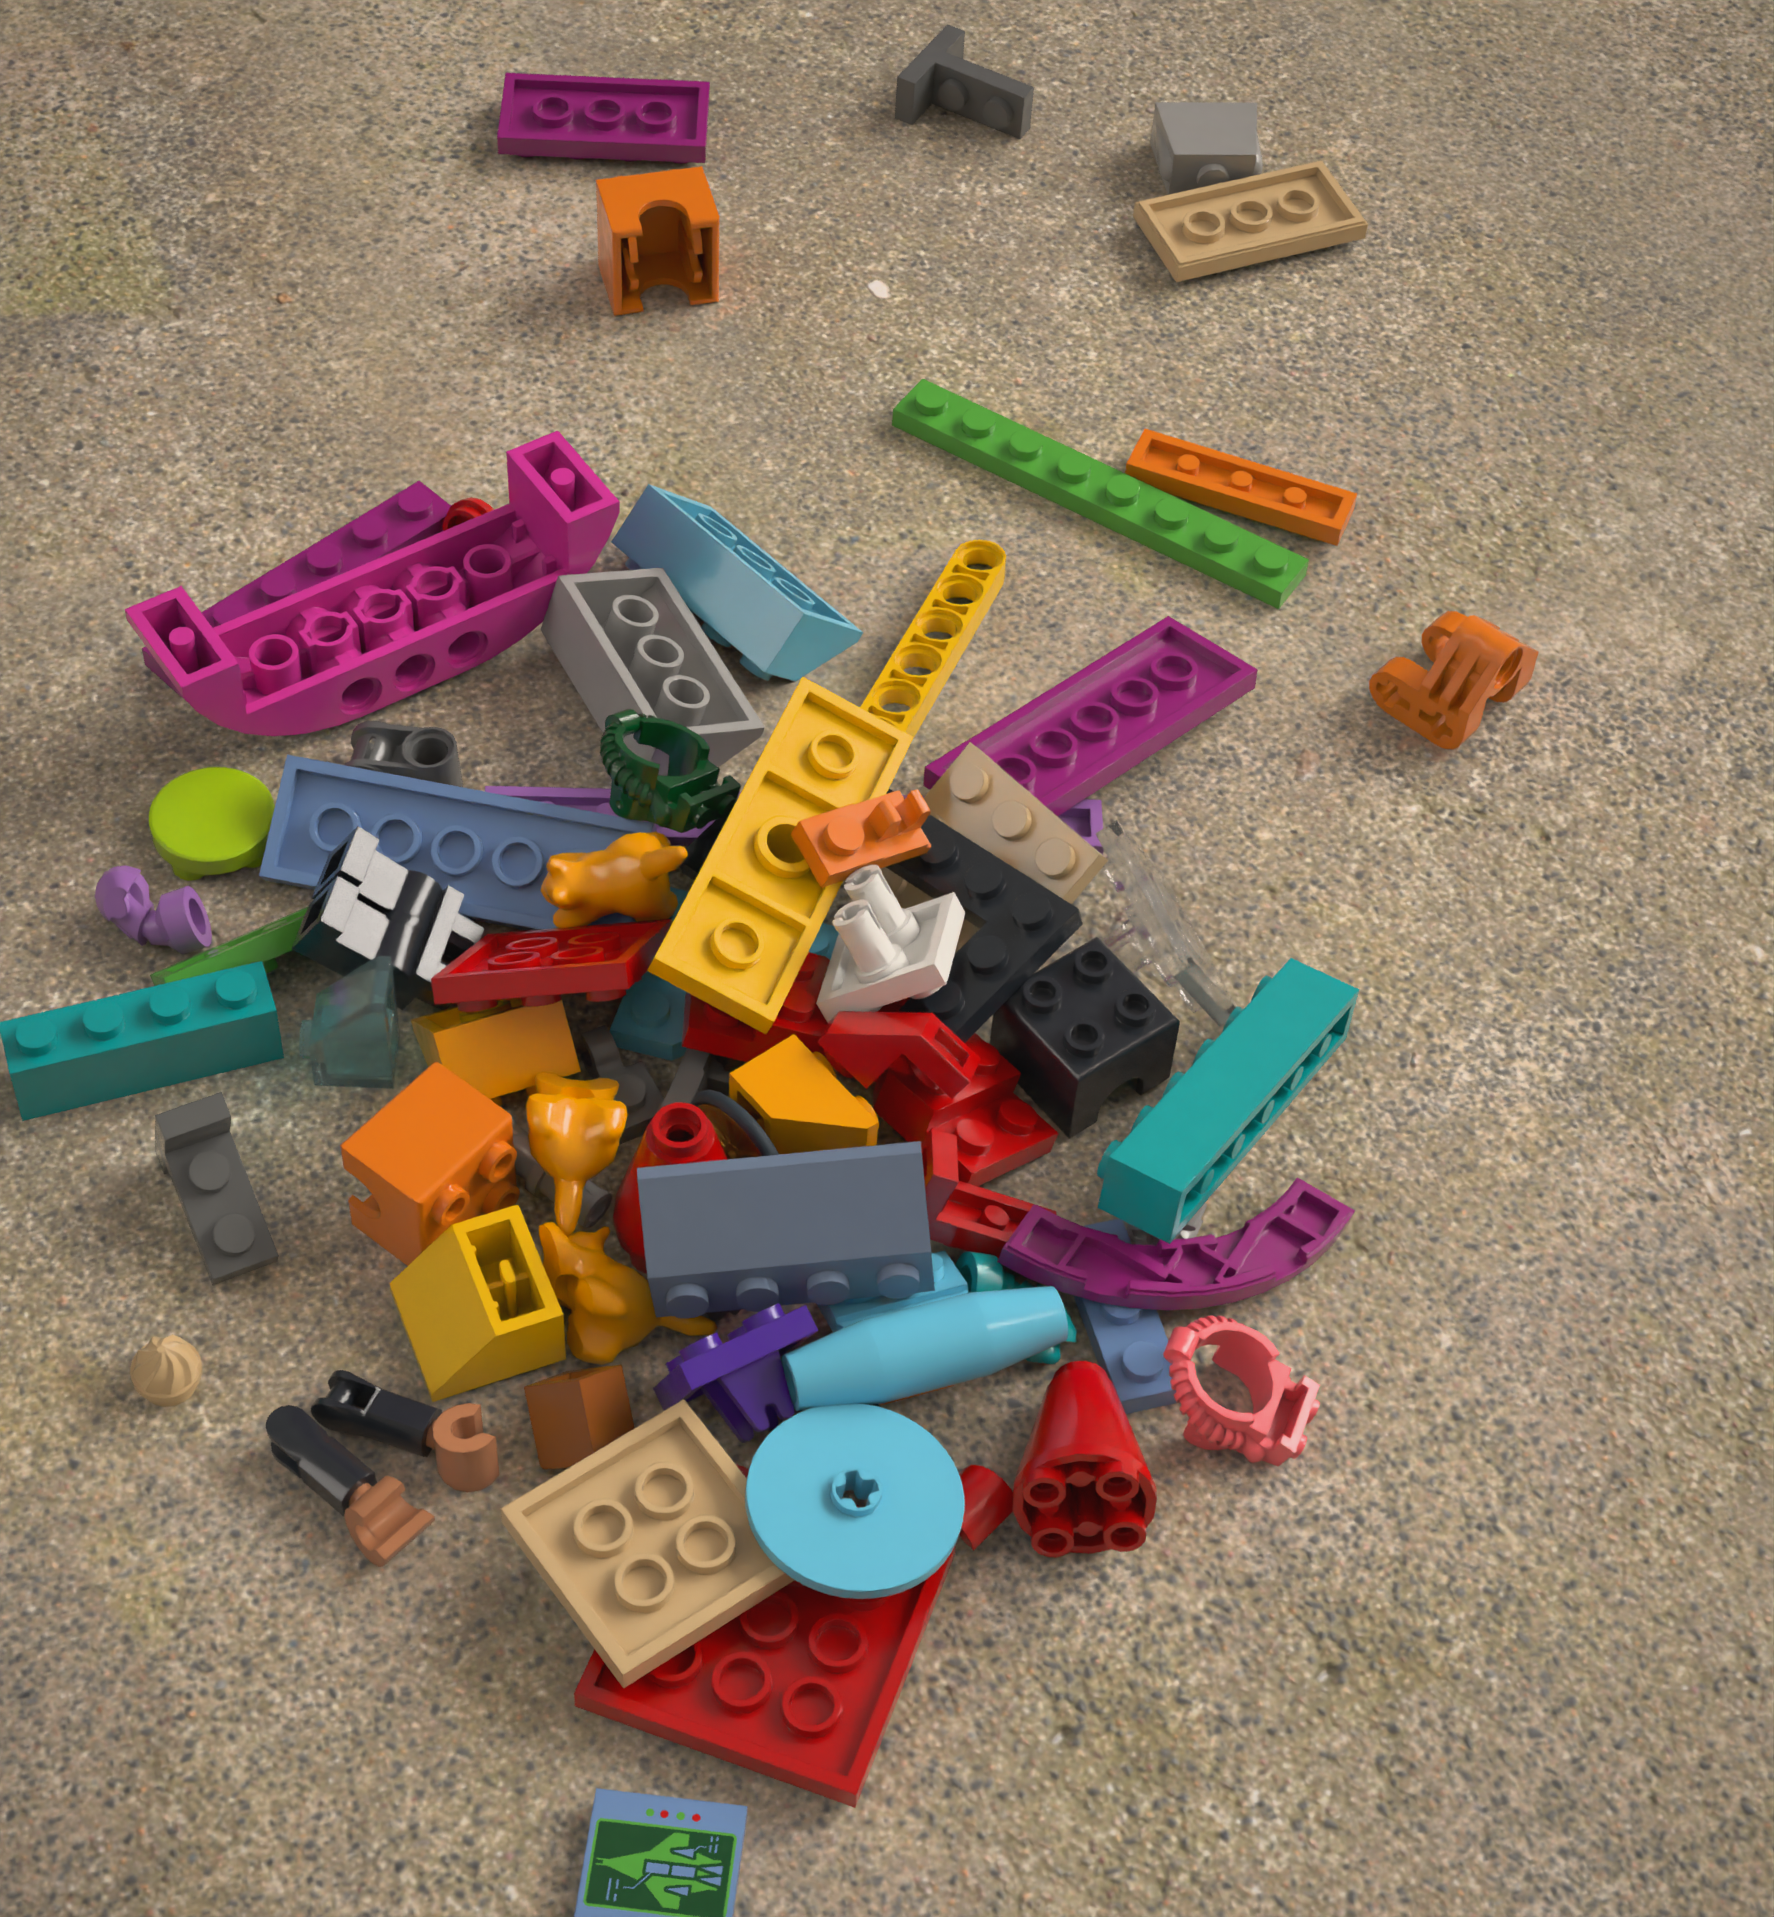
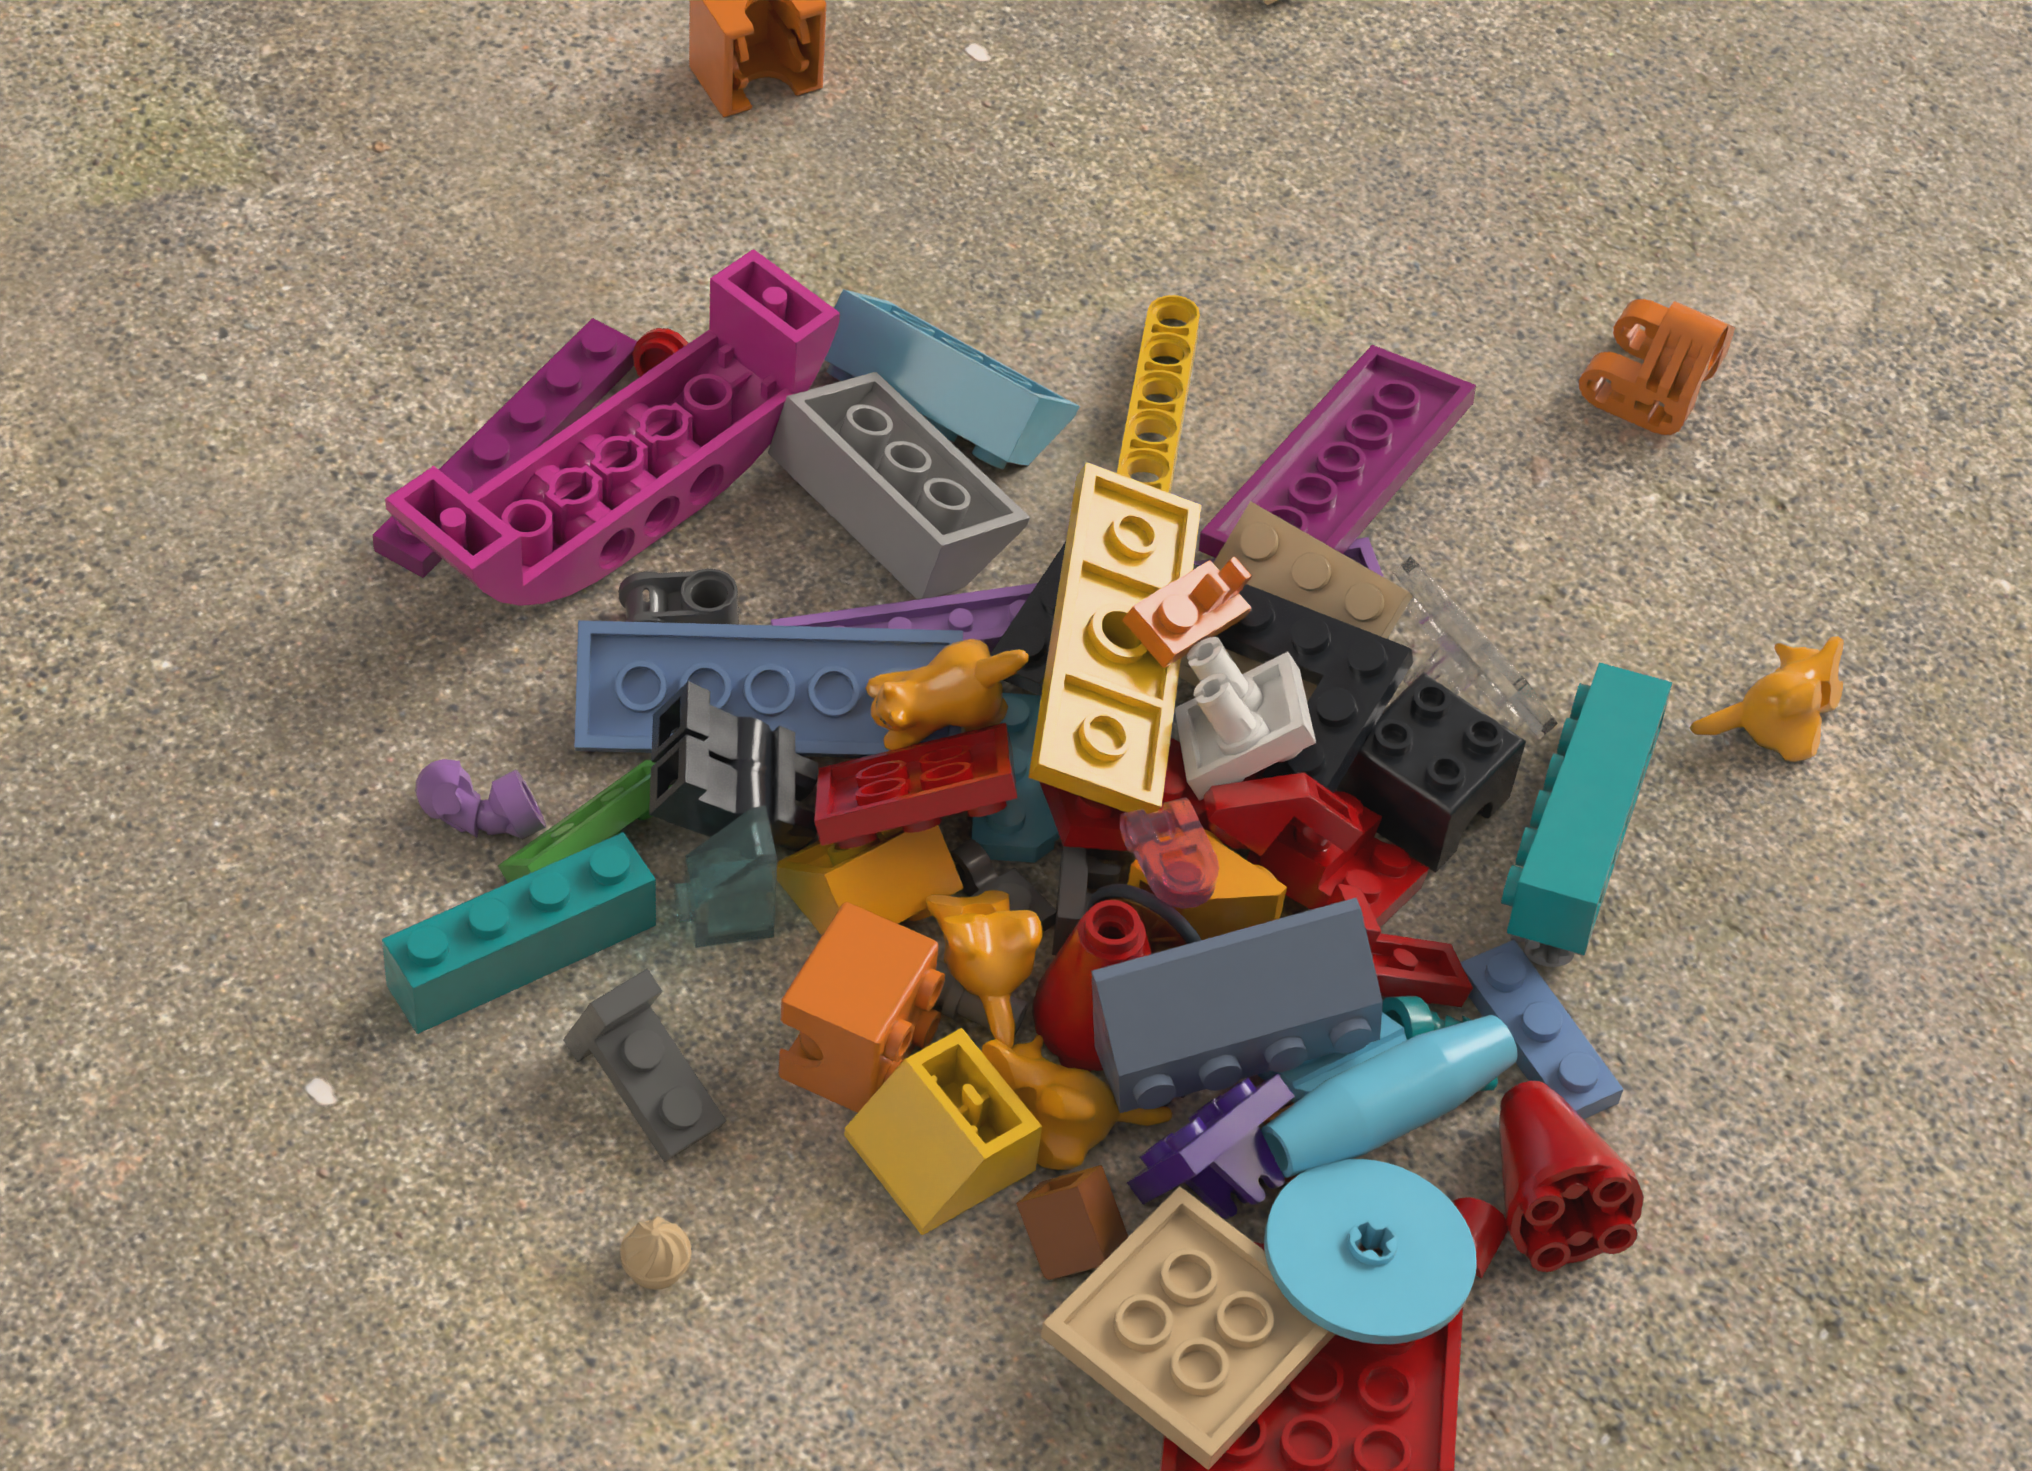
camera: 15 degrees left, 0 degrees up
(211, 822) = (508, 700): lime tile -> none
(372, 1510) = (908, 1355): piece -> none
(462, 1450) = (913, 1261): piece -> none
(683, 798) = (973, 596): dark green piece -> none
(768, 1085) = (1178, 869): none -> clear pink plate
(1101, 493) = (1260, 229): bright green plate -> none
(1187, 1271) = (1579, 985): magenta tile -> none
(1242, 487) = (1397, 204): orange plate -> none
(1279, 1404) = (1711, 1093): coral piece -> none
(1478, 1031) = (1787, 704): none -> light orange animal

